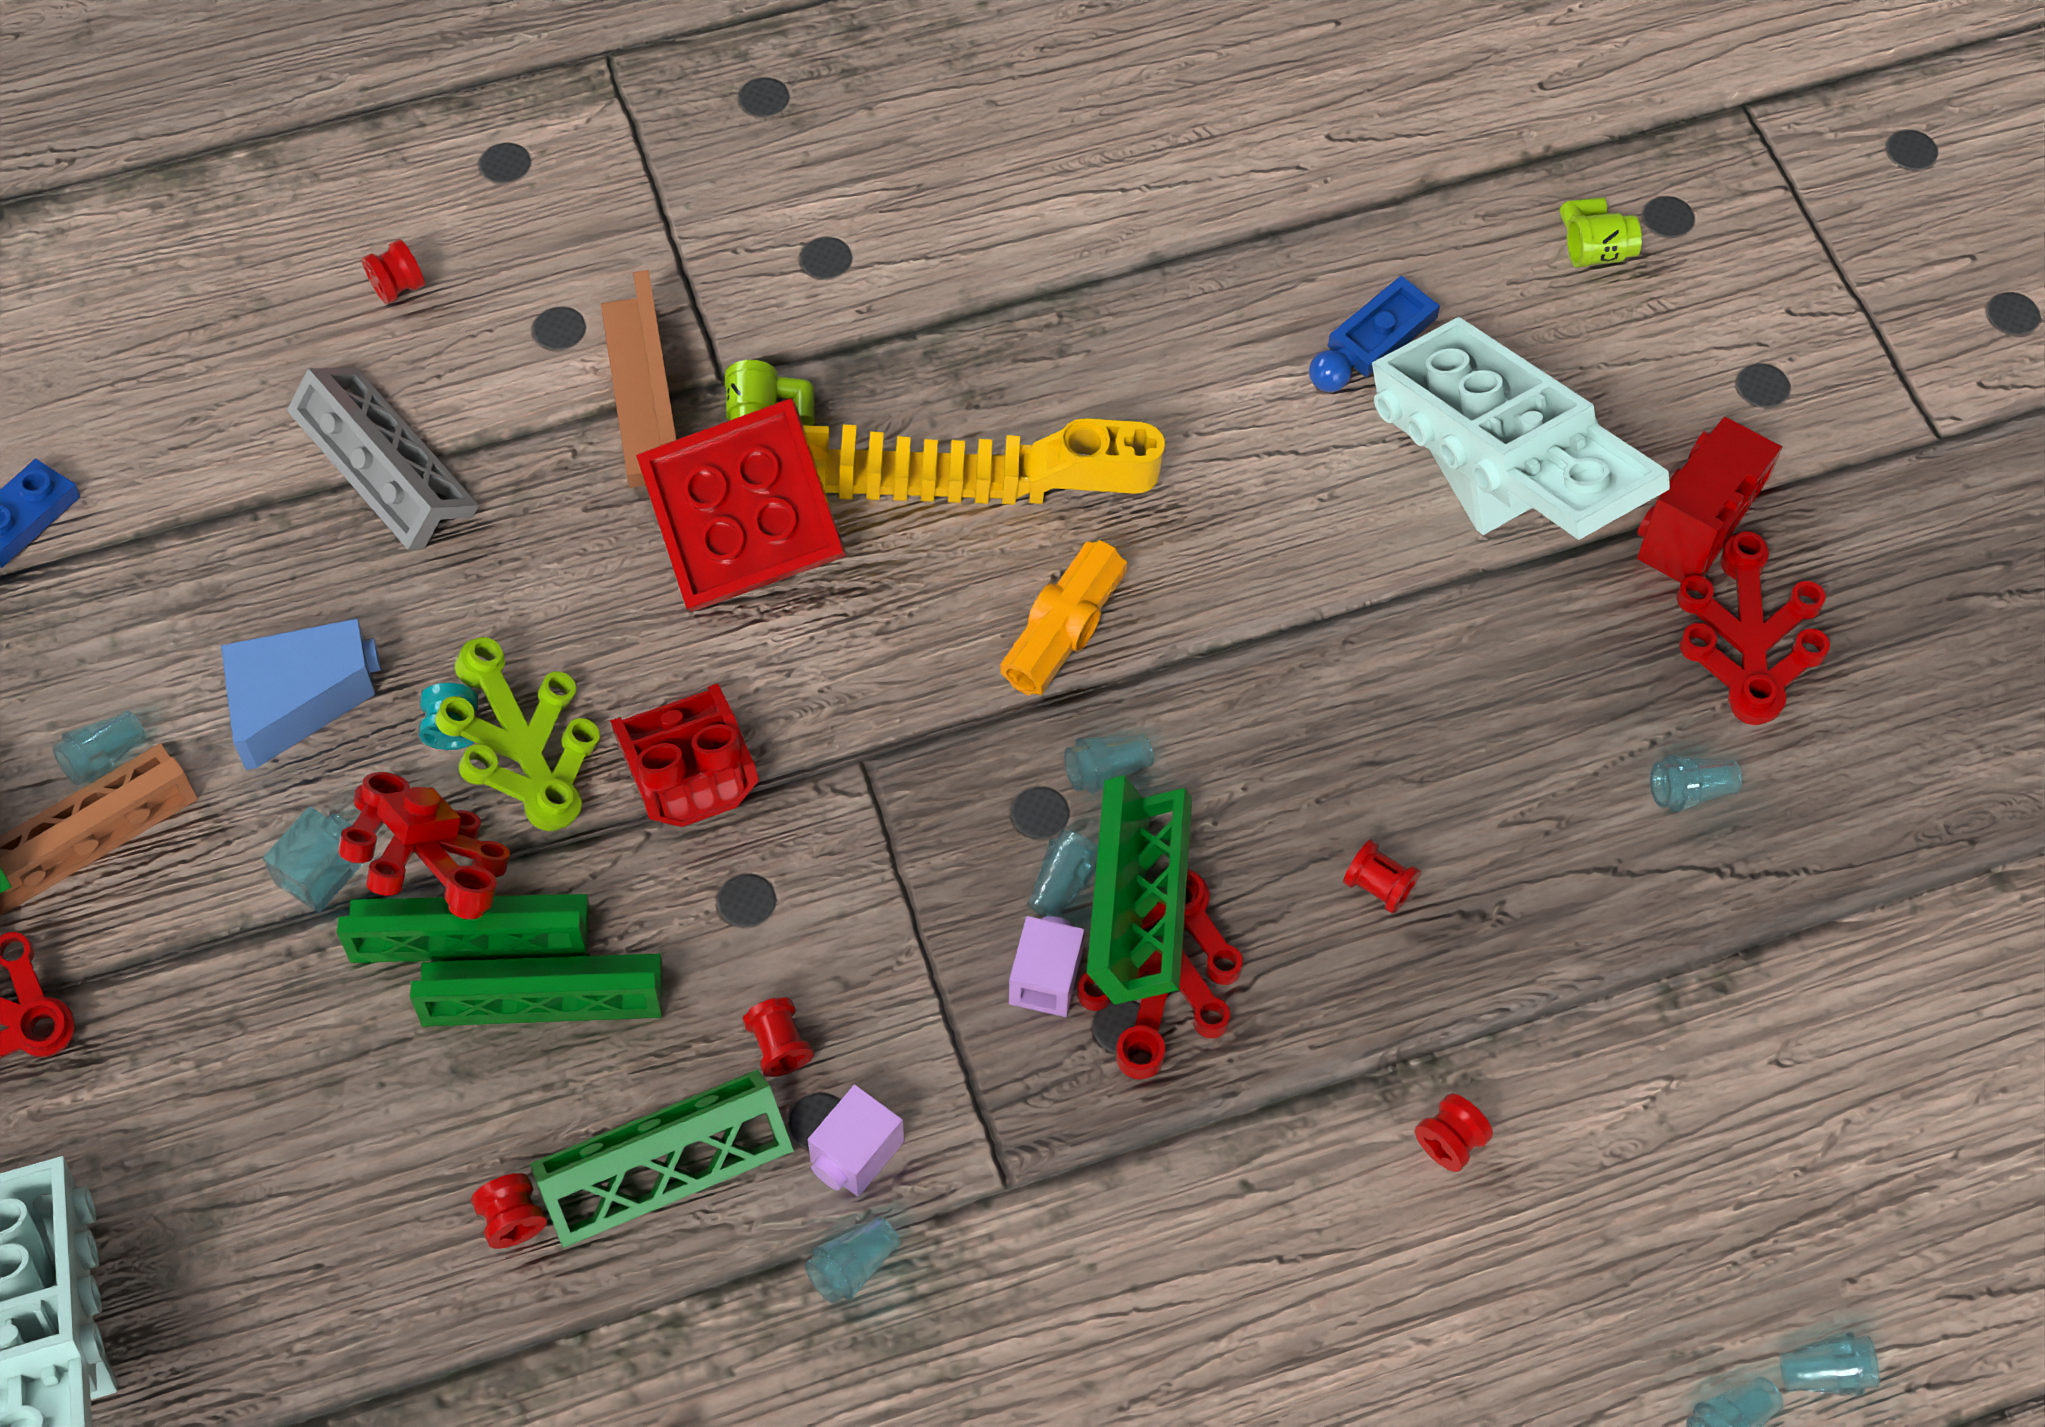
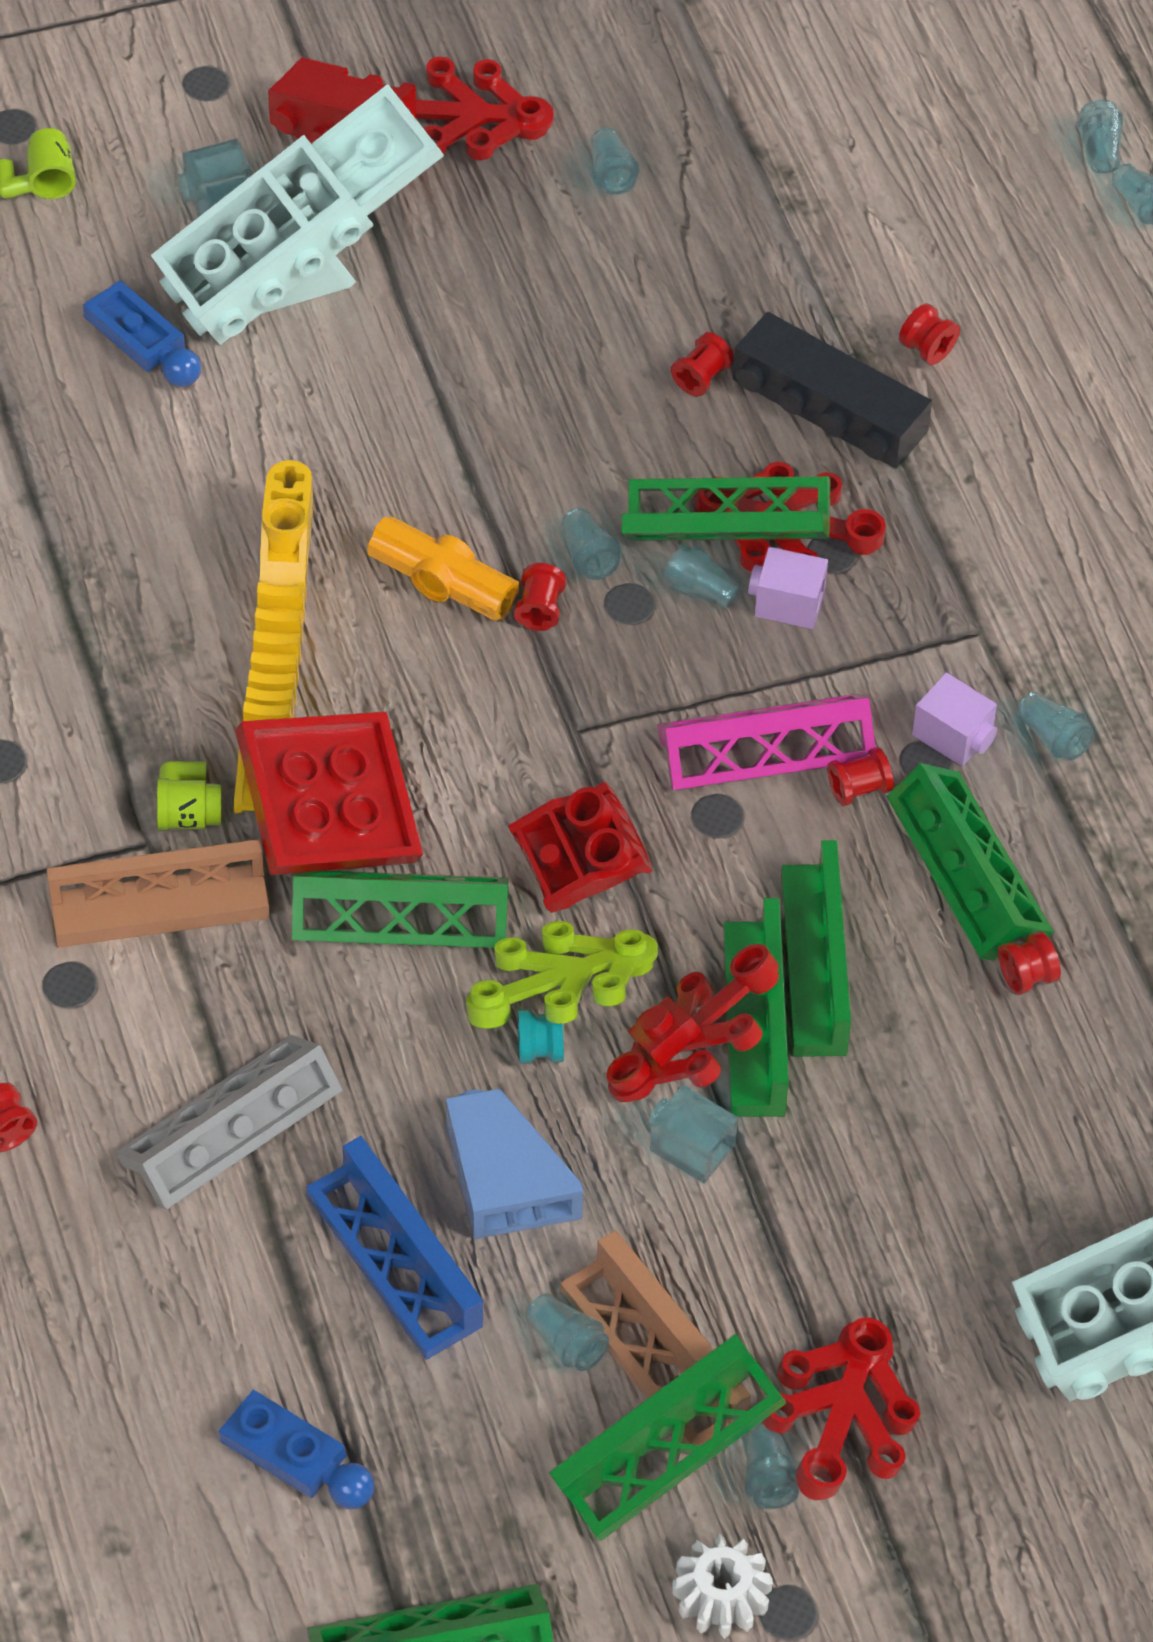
camera: 90 degrees left, 5 degrees down
(216, 601) = (414, 1239): none -> blue fence
(636, 591) = (399, 888): none -> green fence
(848, 932) = (763, 721): none -> dark pink fence
(1027, 711) = (540, 596): none -> red bush
(1349, 1017) = (831, 390): none -> black brick
(1607, 382) = (212, 173): none -> clear light blue brick

